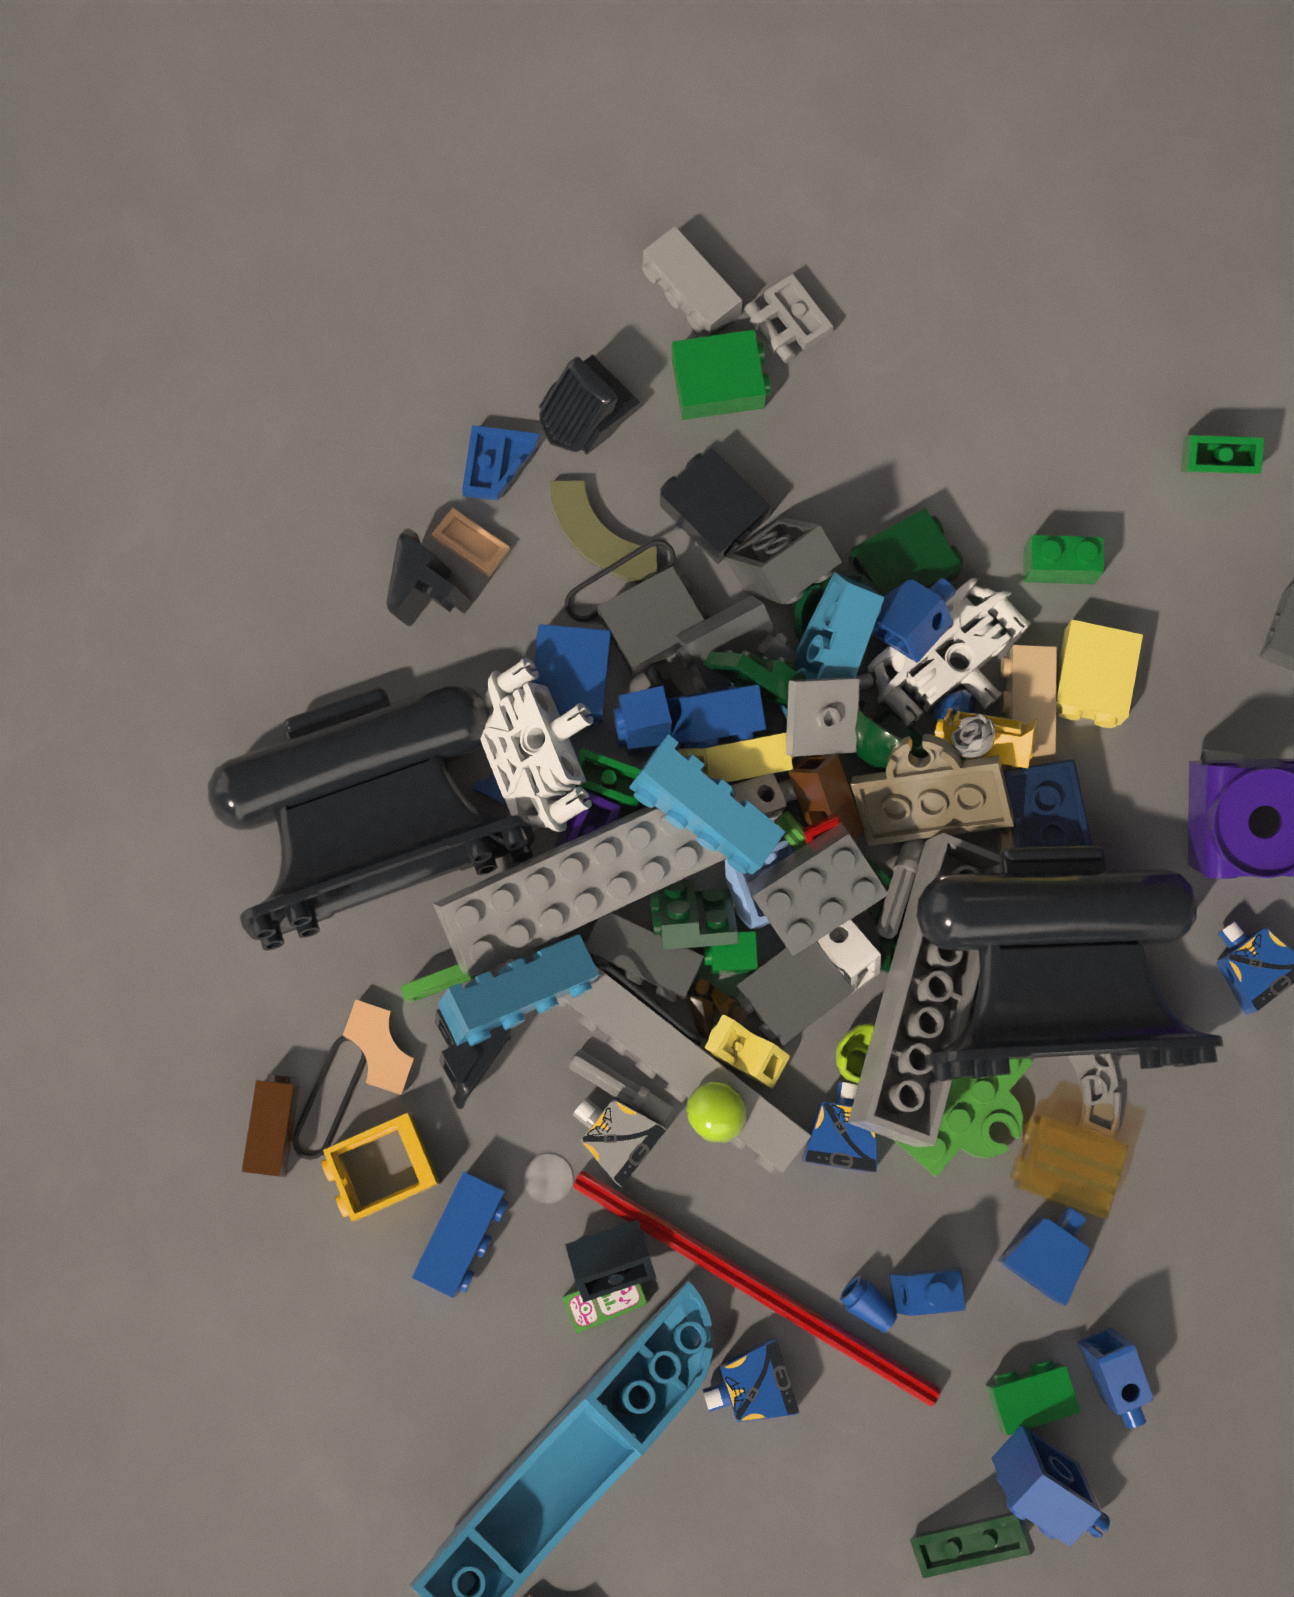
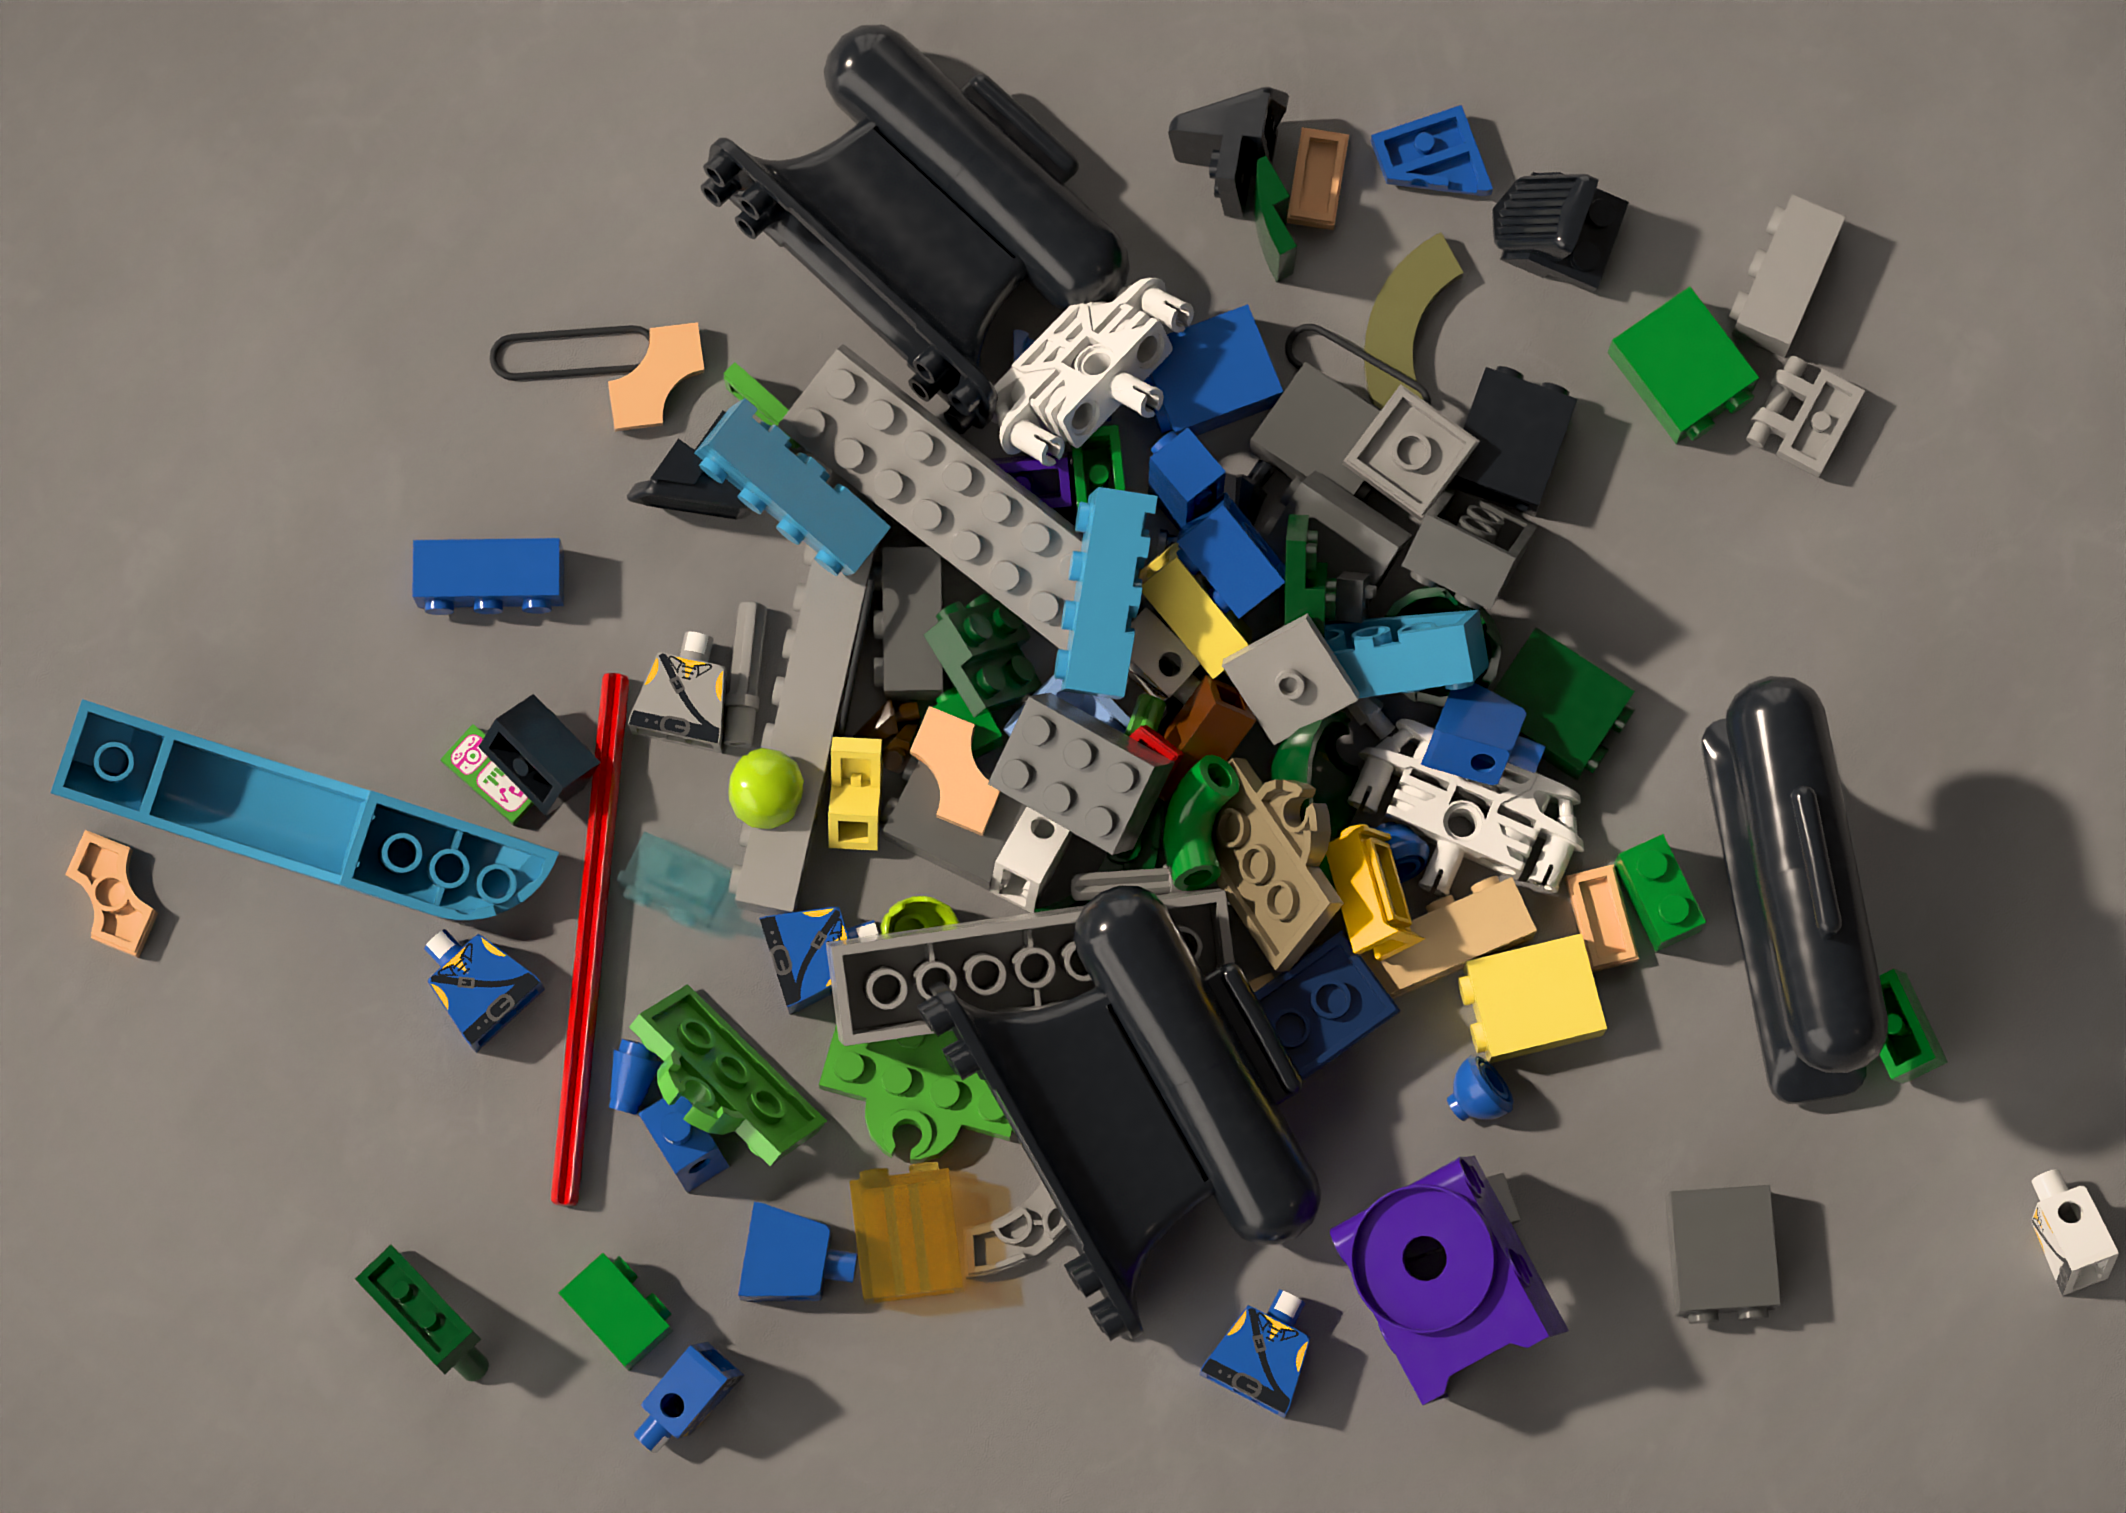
camera: 65 degrees right, 0 degrees up
(271, 1126) = (506, 302): reddish brown brick -> none
(414, 1145) = (554, 480): yellow window -> none
(496, 585) = (1271, 214): none -> dark green slope
(548, 1178) = (600, 644): clear sticker -> none
(696, 568) = (1410, 452): none -> light grey plate
(743, 1207) = (675, 881): none -> clear light blue bracket
(749, 973) = (946, 749): none -> light nougat tile
(877, 833) = (1191, 821): none -> green cylinder
(907, 1242) = (723, 1077): none -> bright green plate
(974, 736) = (1353, 866): light grey plate -> none
(1047, 1488) = (519, 1362): blue brick -> none
(1056, 604) = (1602, 917): none -> light nougat tile
(1125, 461) = (1795, 891): none -> black piece
(1142, 738) = (1479, 1091): none -> blue brick

